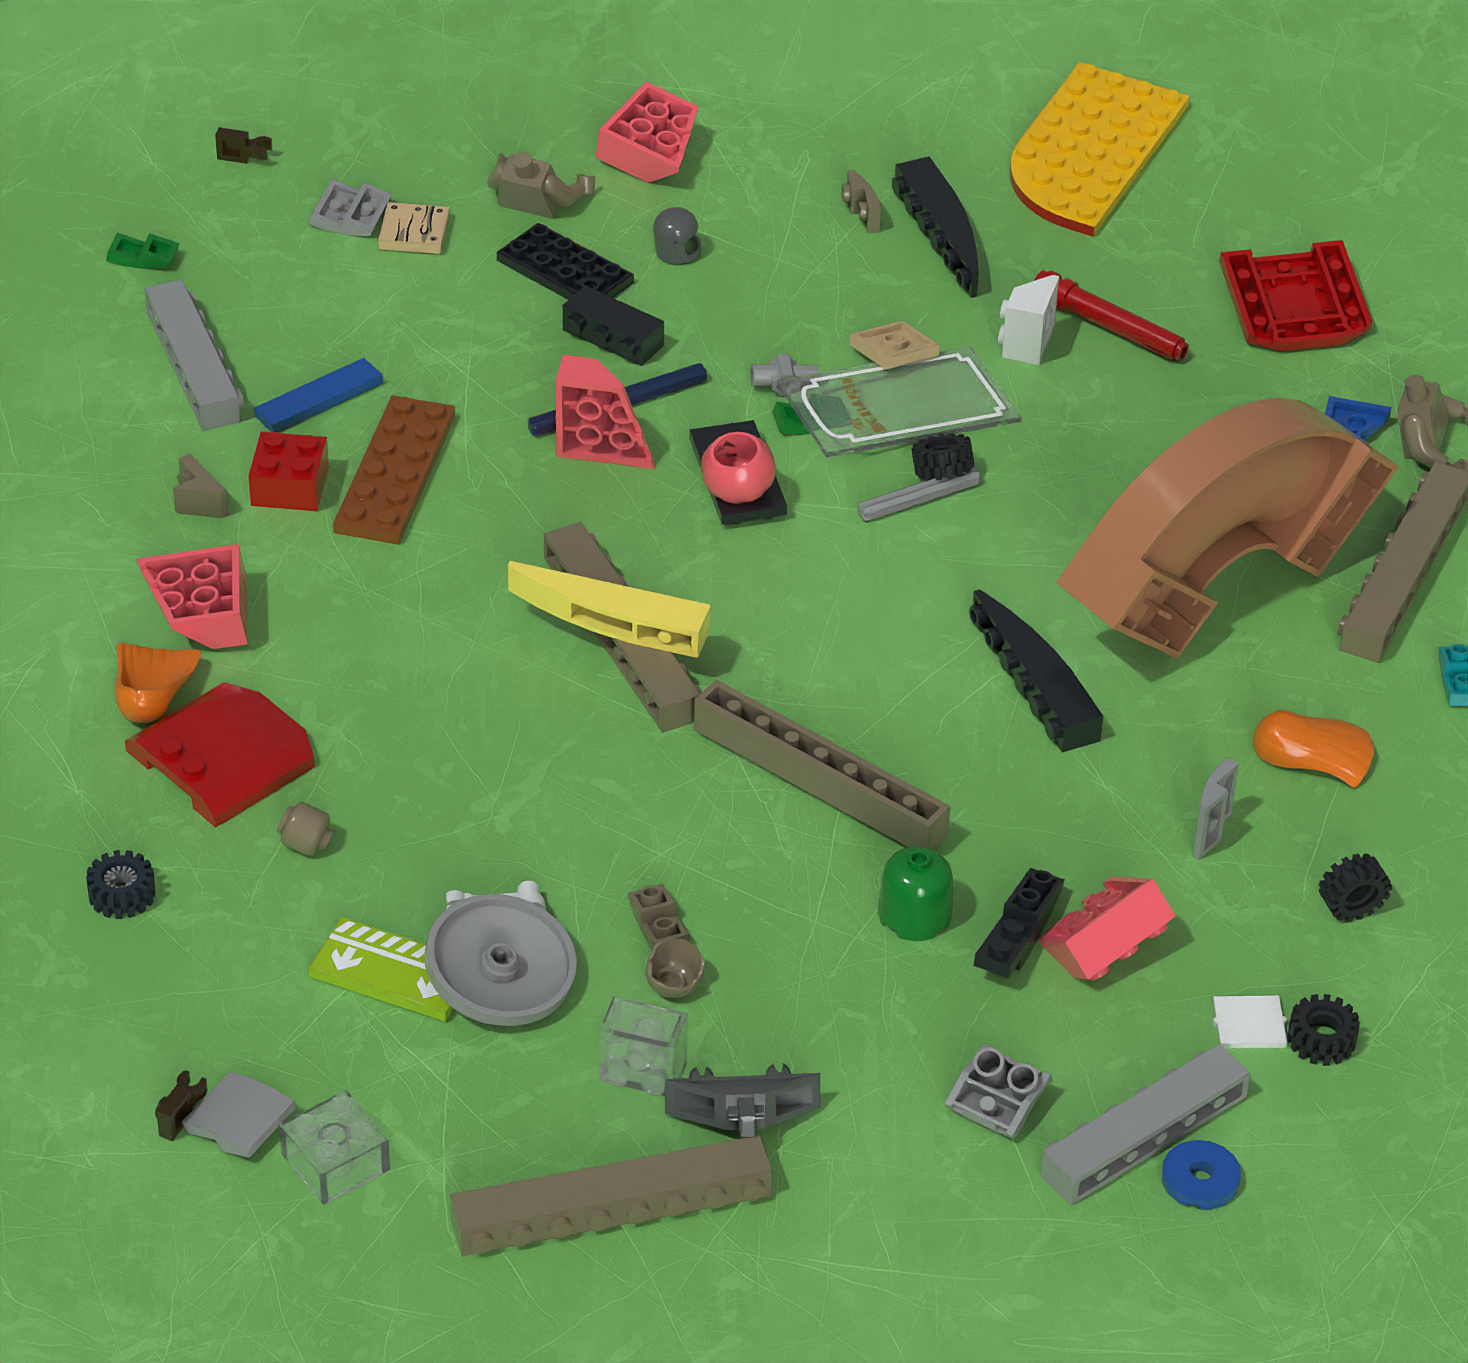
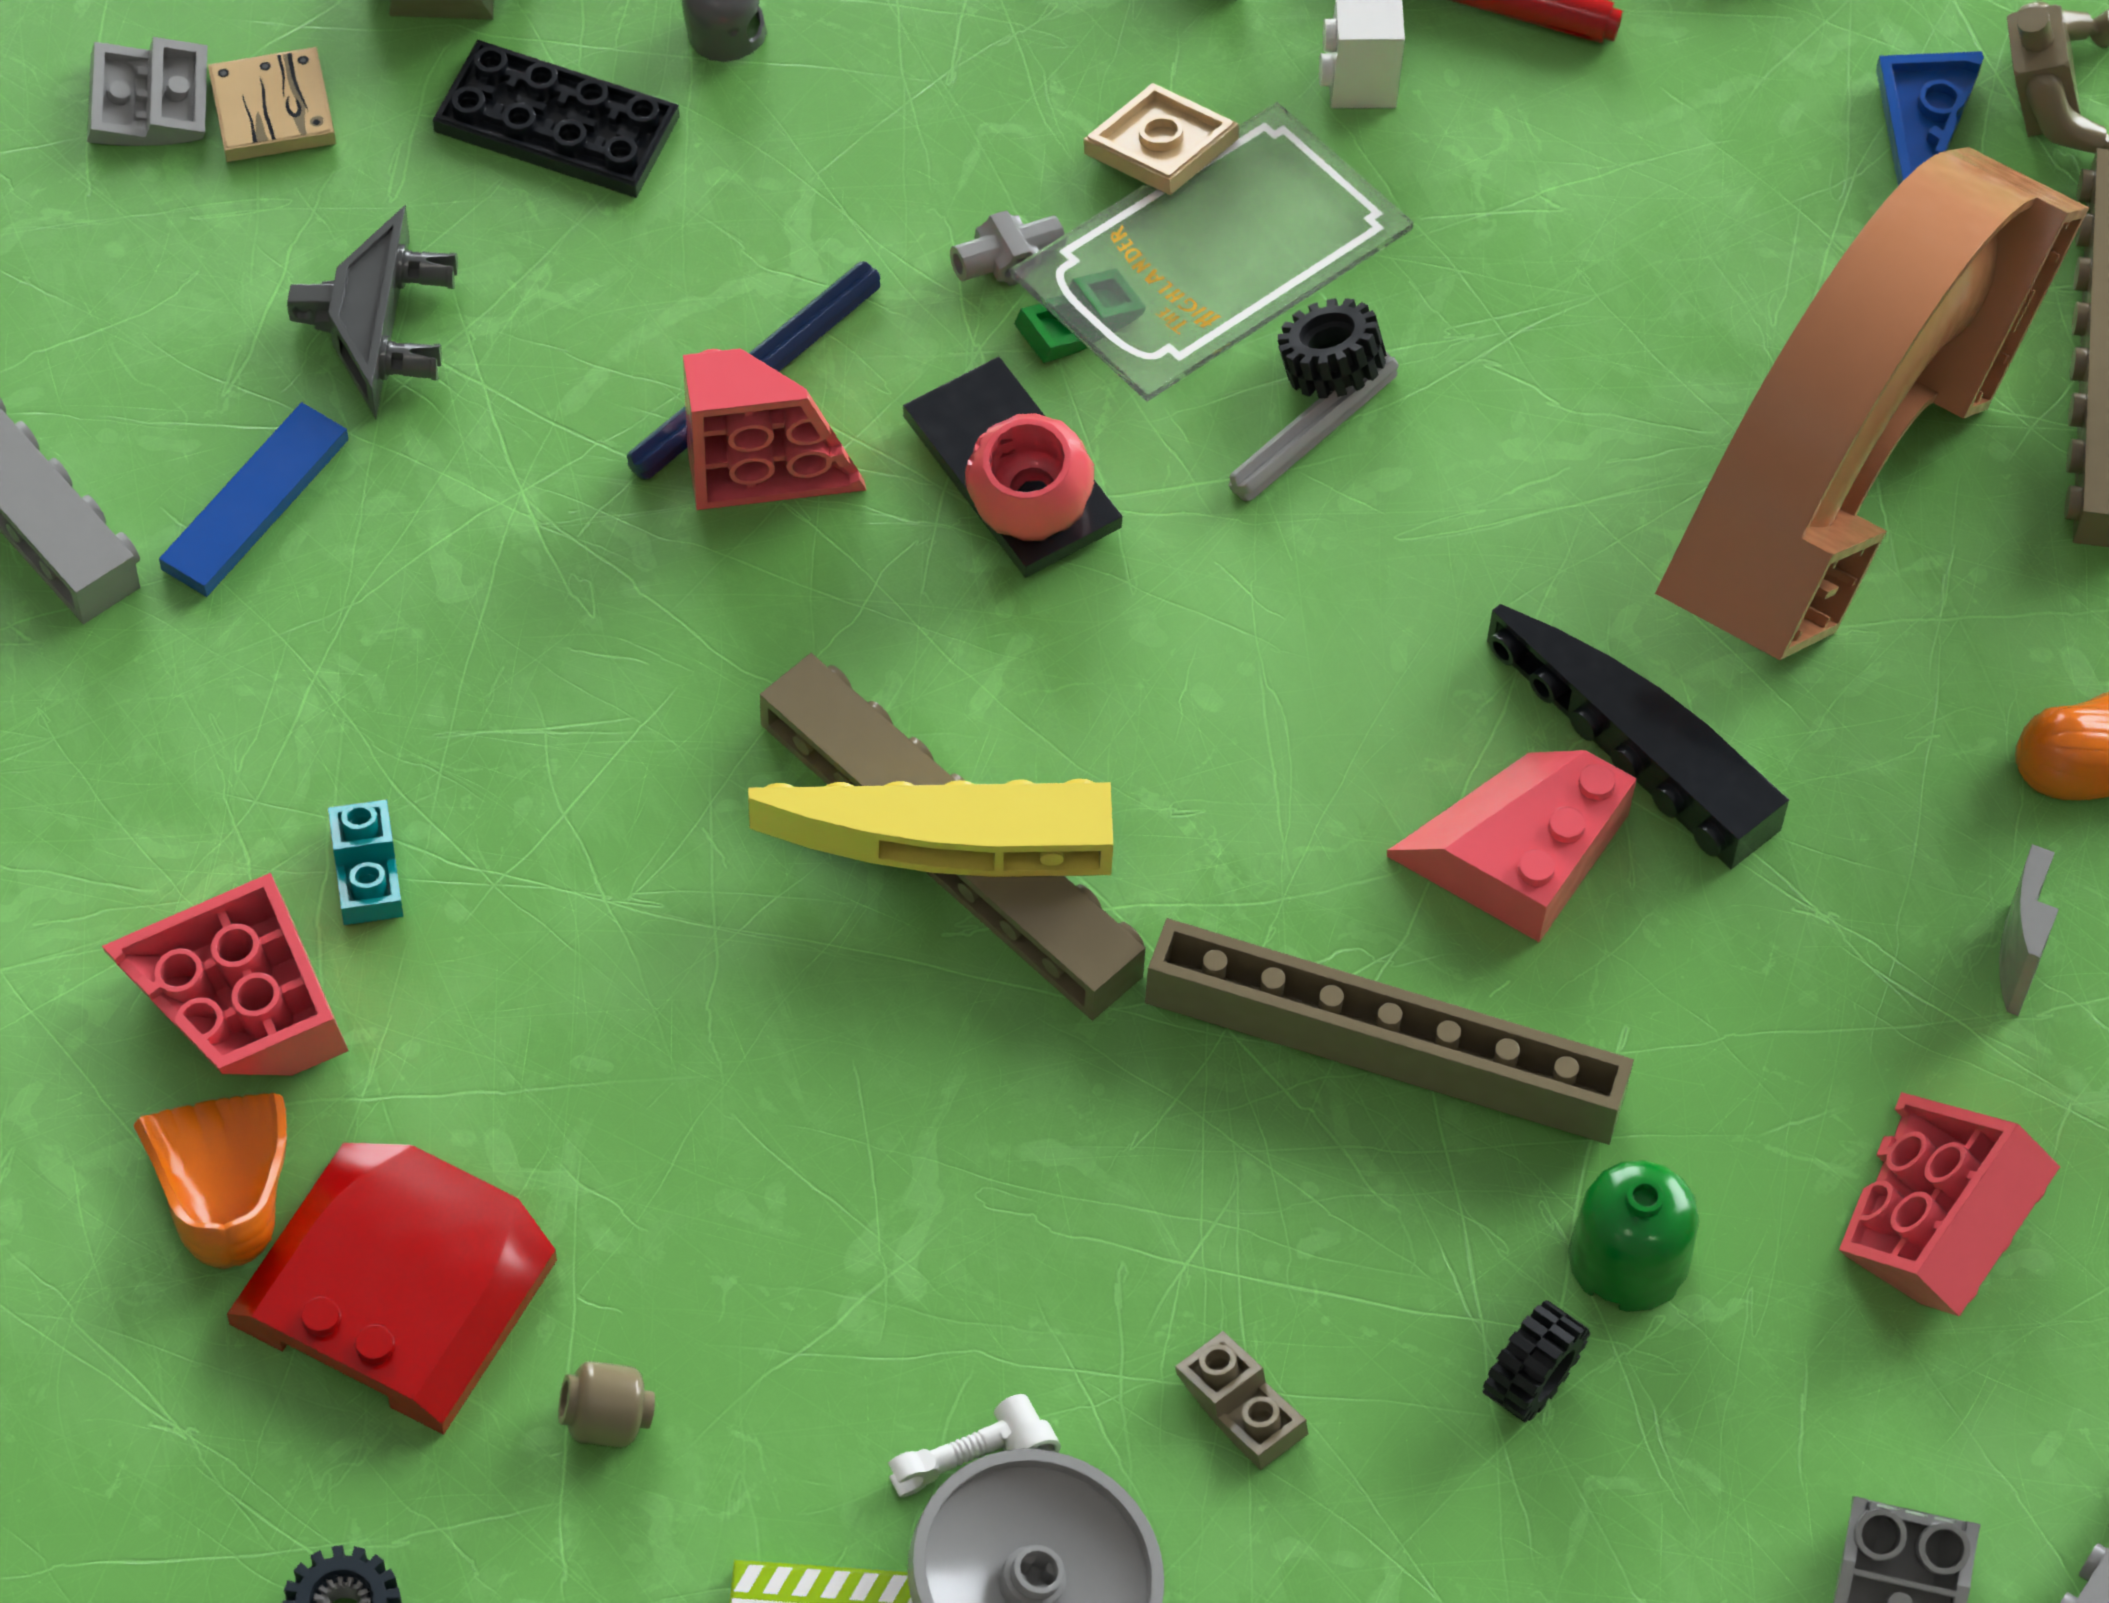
camera: 20 degrees left, 15 degrees up
(198, 491) = (142, 762): dark tan slope -> none
(288, 471) = (276, 679): red brick -> none
(298, 564) = (365, 862): none -> teal slope
(394, 470) = (444, 617): dark orange plate -> none
(422, 319) = (363, 306): none -> dark grey connector
(613, 325) = (690, 223): black brick -> none
(674, 967) = (1314, 1498): dark tan hair -> none
(829, 935) = (1536, 1361): none -> black tyre
(949, 707) = (1524, 836): none -> coral wedge
(1021, 923) = (1810, 1238): black slope -> none

